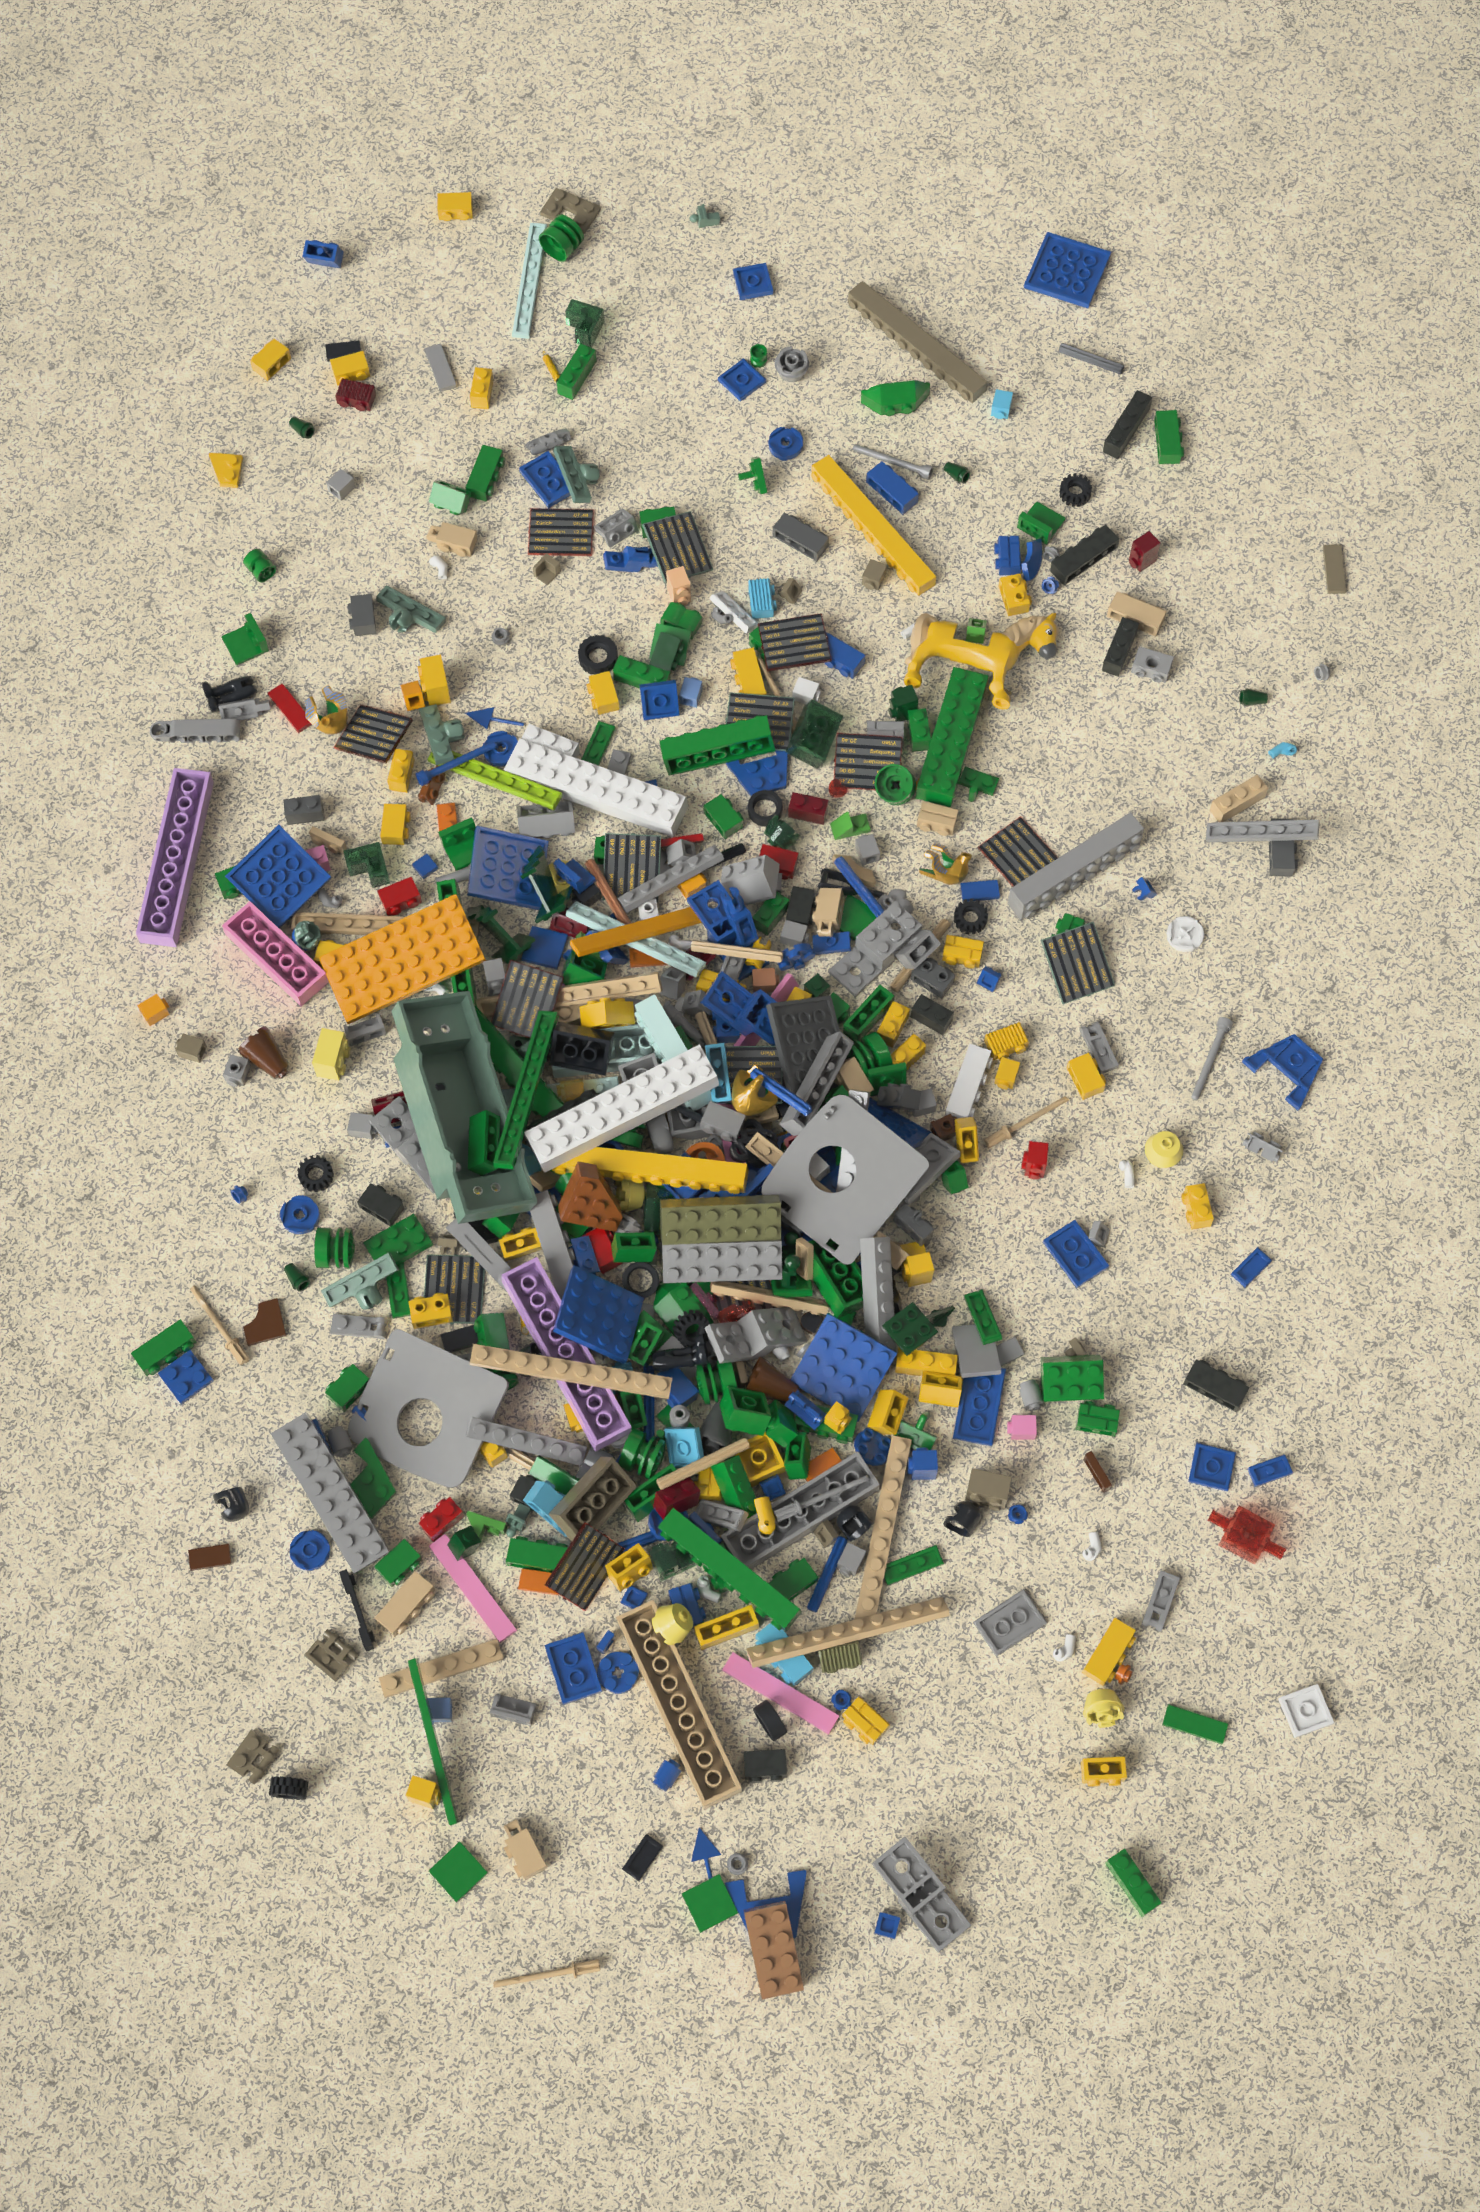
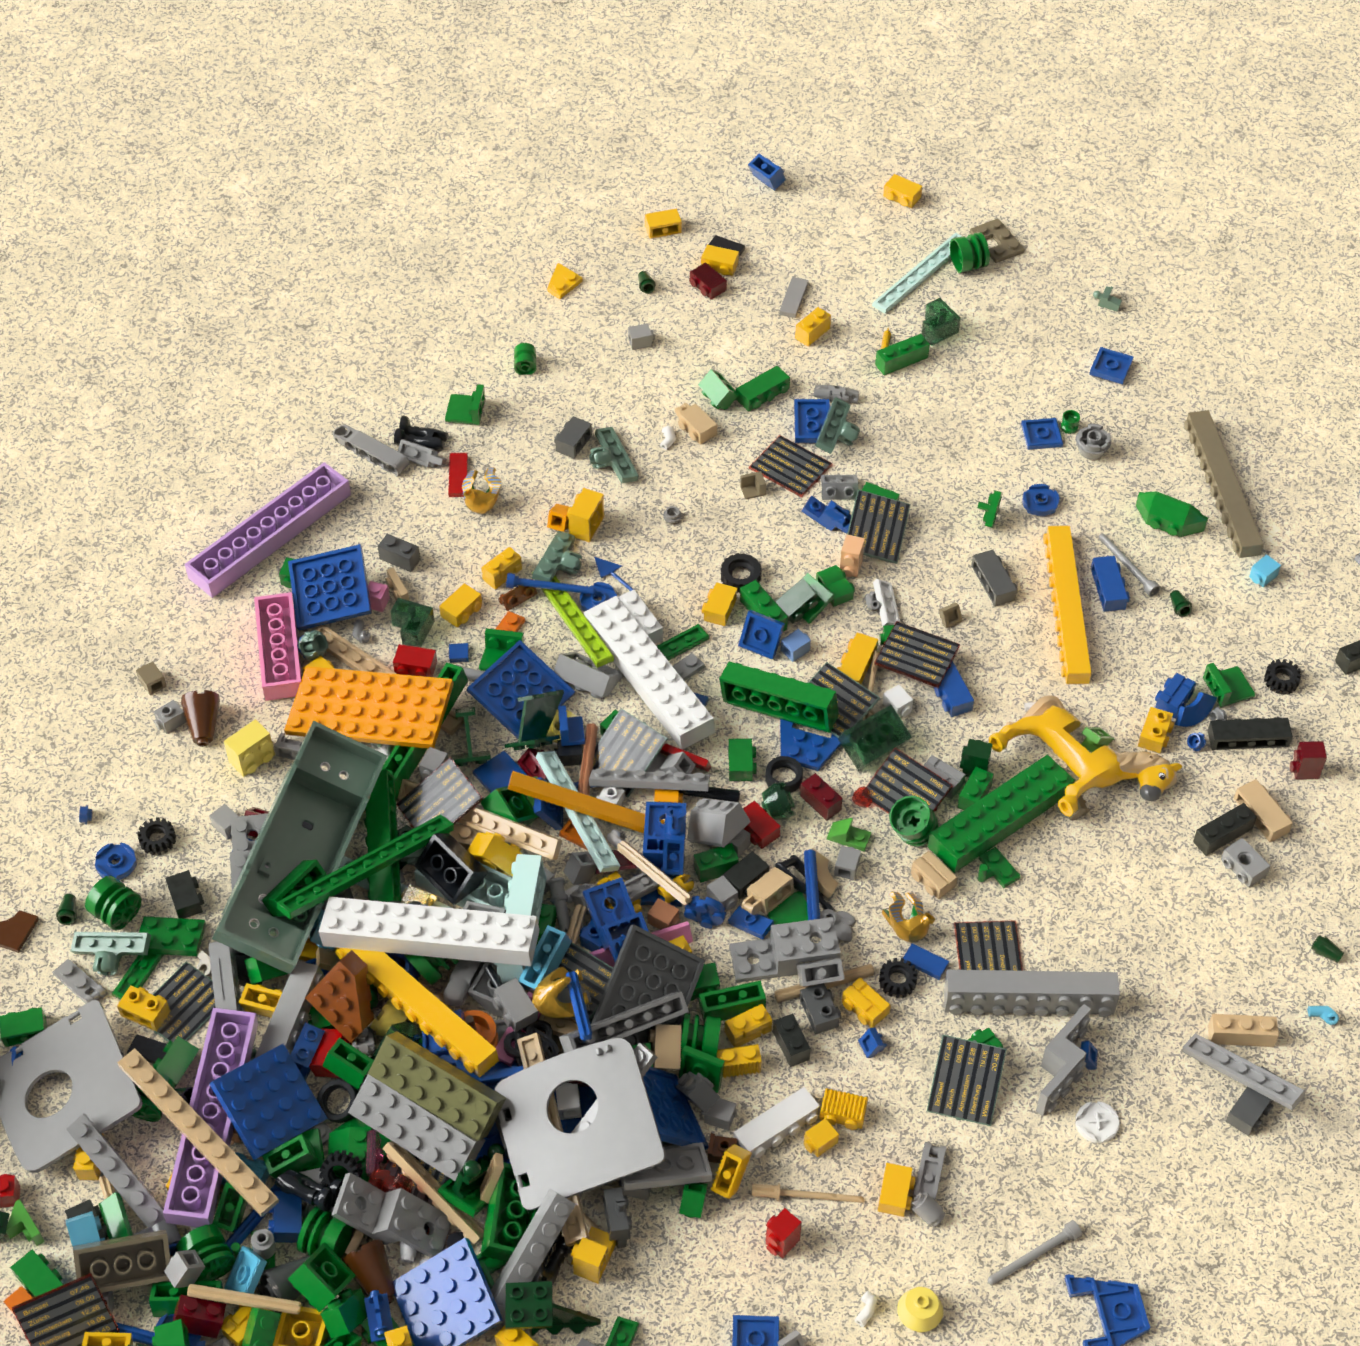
camera: 35 degrees right, 15 degrees down
(154, 1009) = (150, 632): light orange brick -> none
(373, 734) = (504, 528): piece -> none
(517, 1521) = (53, 1241): sand green piece -> none
(643, 1472) = (184, 1268): none -> light grey brick
(761, 598) = (918, 607): medium azure brick -> none
(817, 986) = (704, 949): dark green brick -> none
(874, 575) = (1036, 643): dark tan brick -> none
(1119, 1075) = (928, 1209): none -> light grey brick
(1135, 903) = (1064, 1061): none -> light grey bracket

